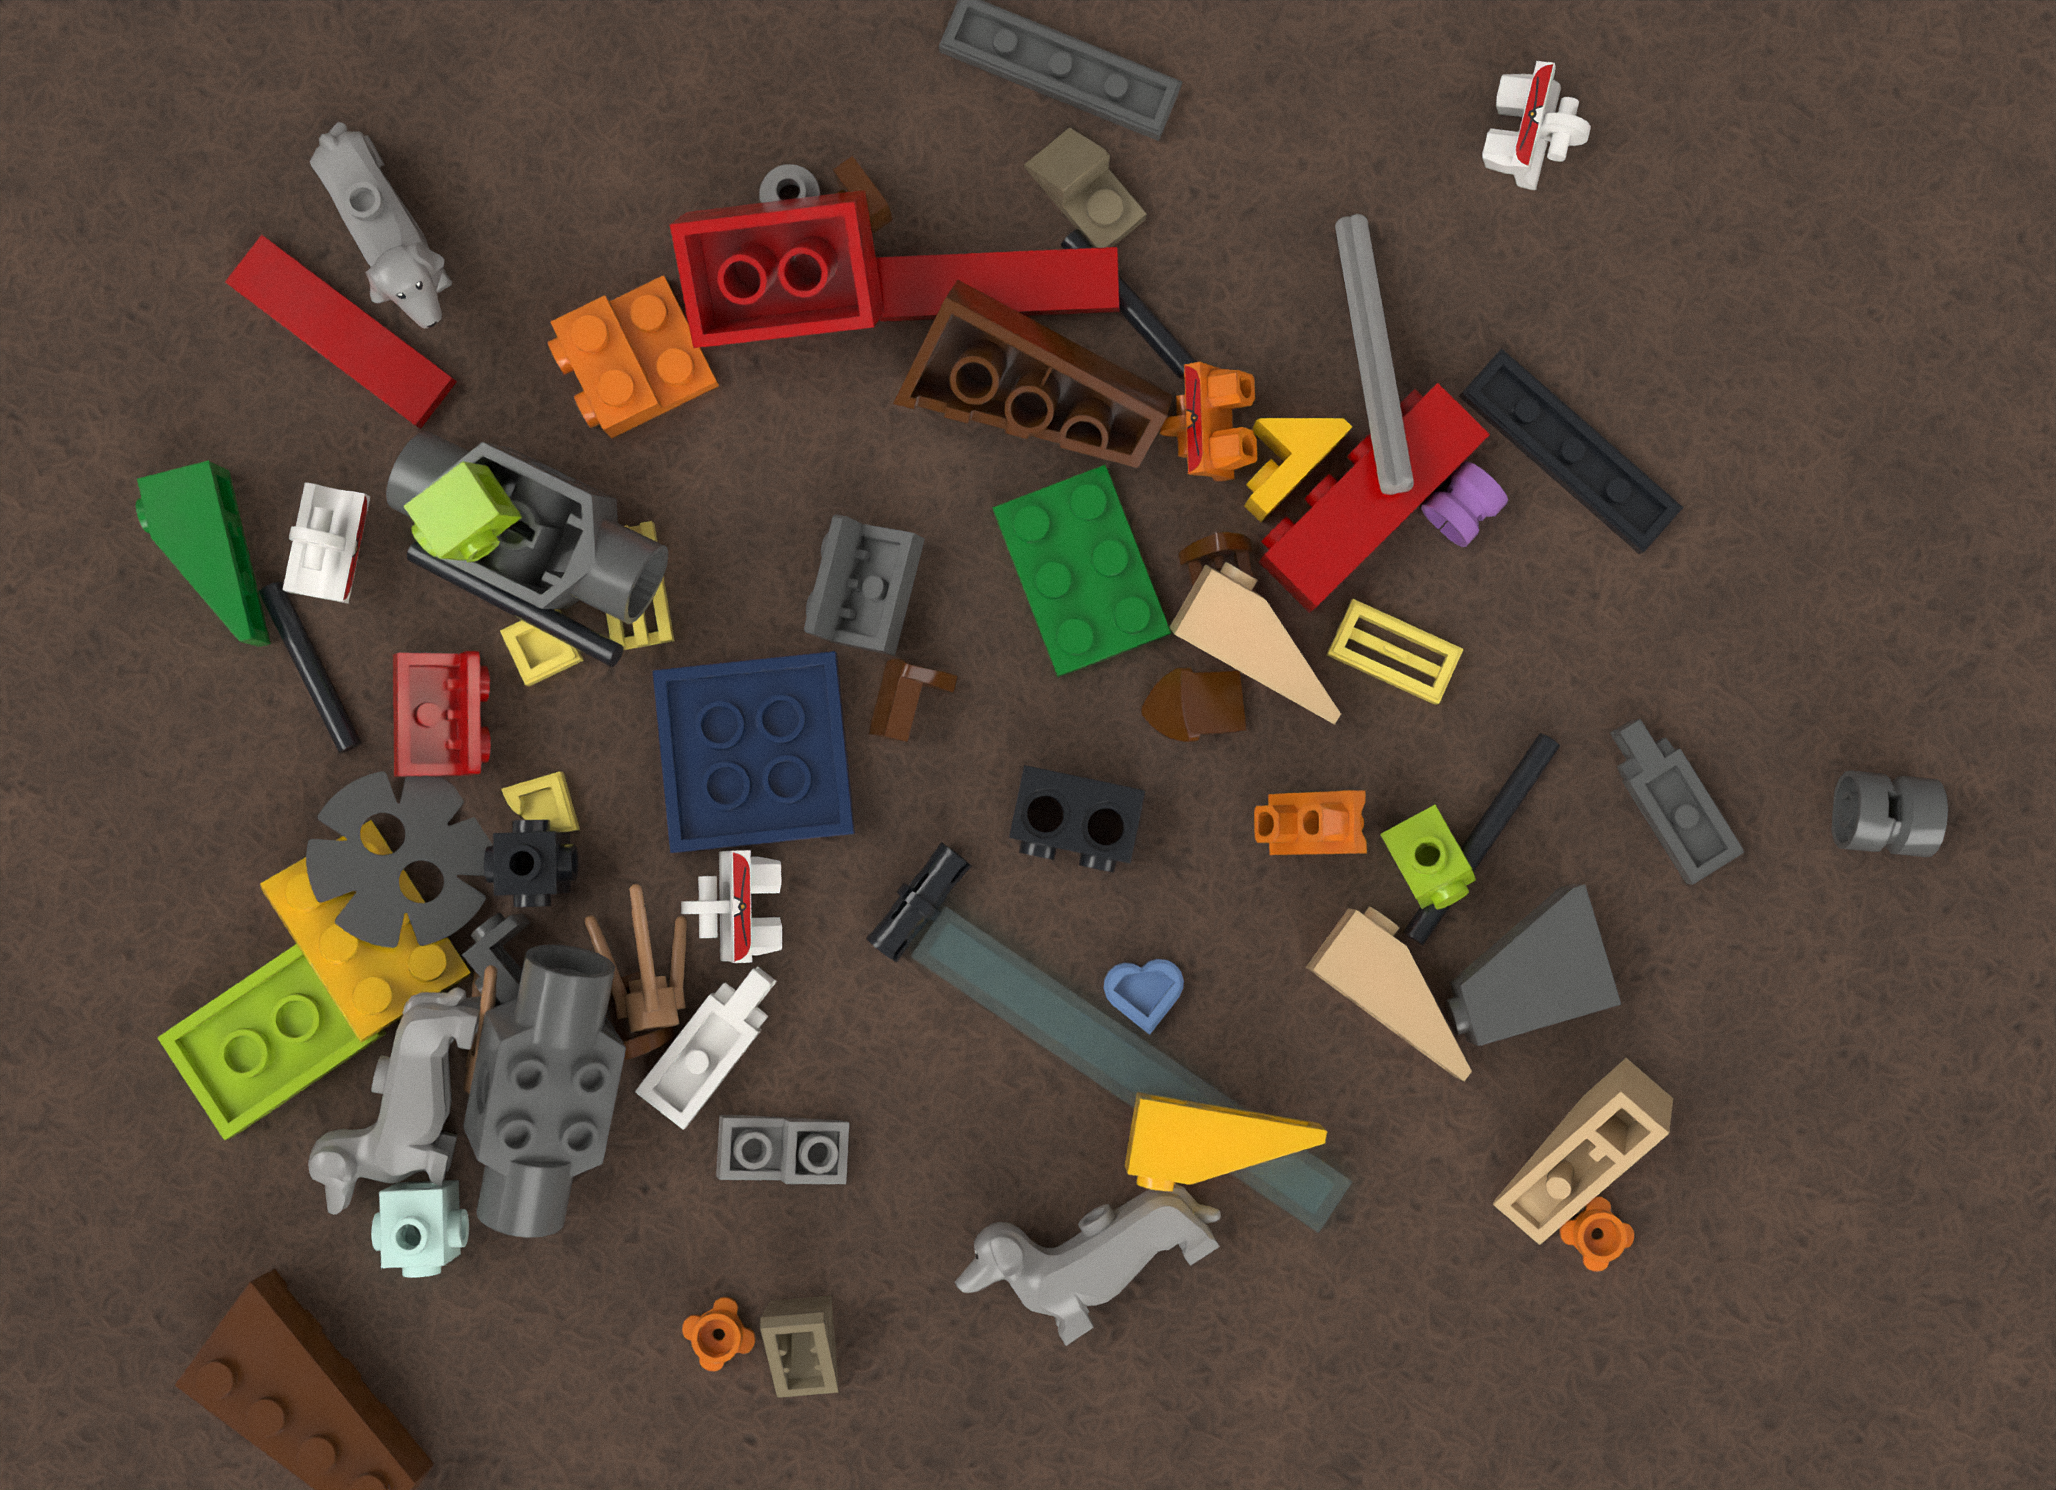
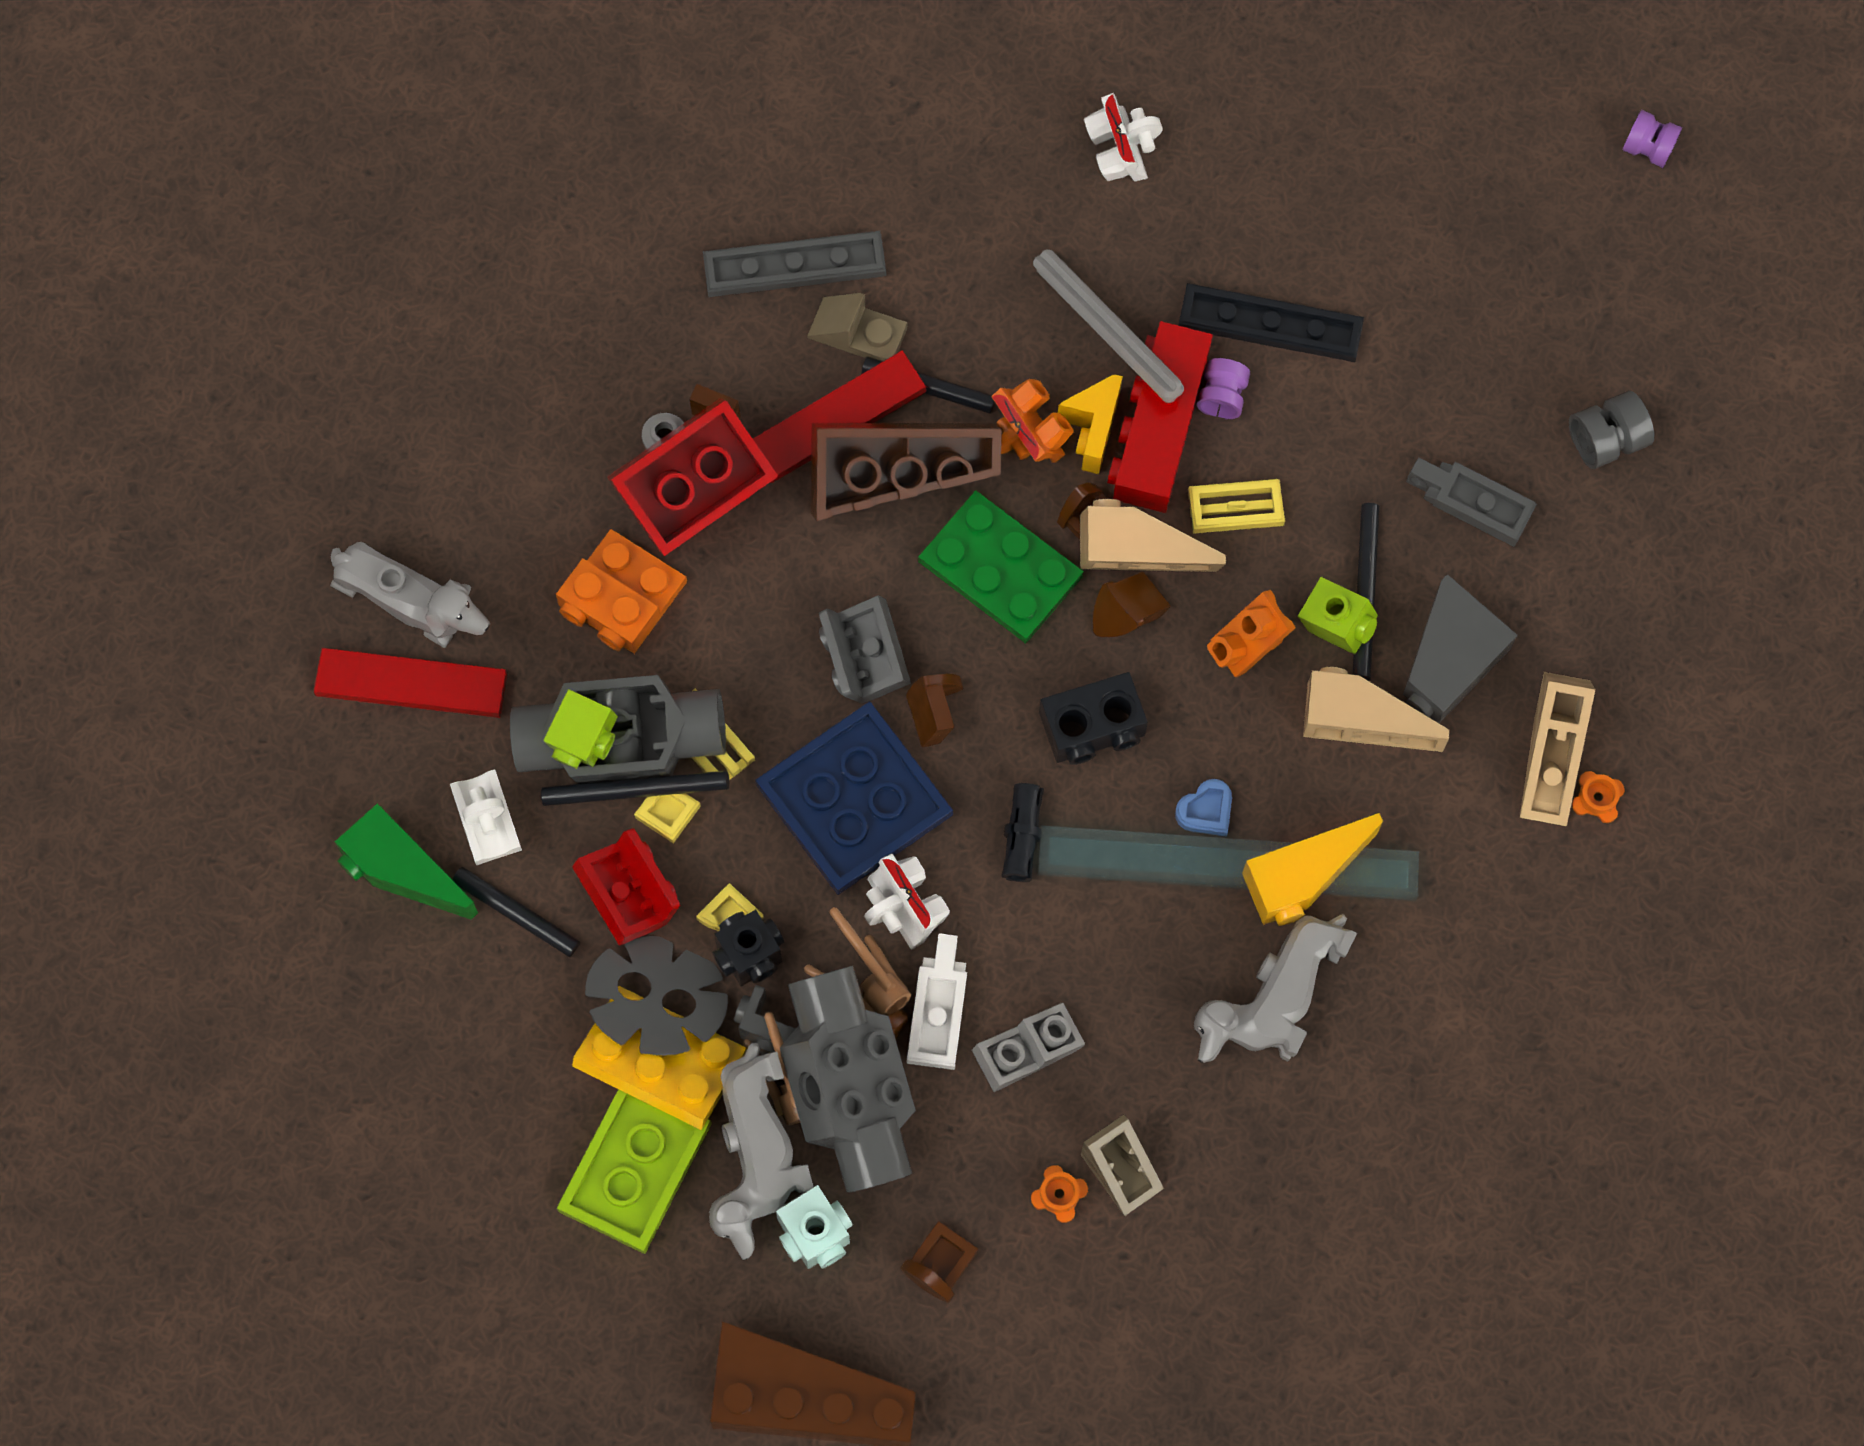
camera: 30 degrees left, 15 degrees down
(541, 1335) = (940, 1262): none -> reddish brown tile

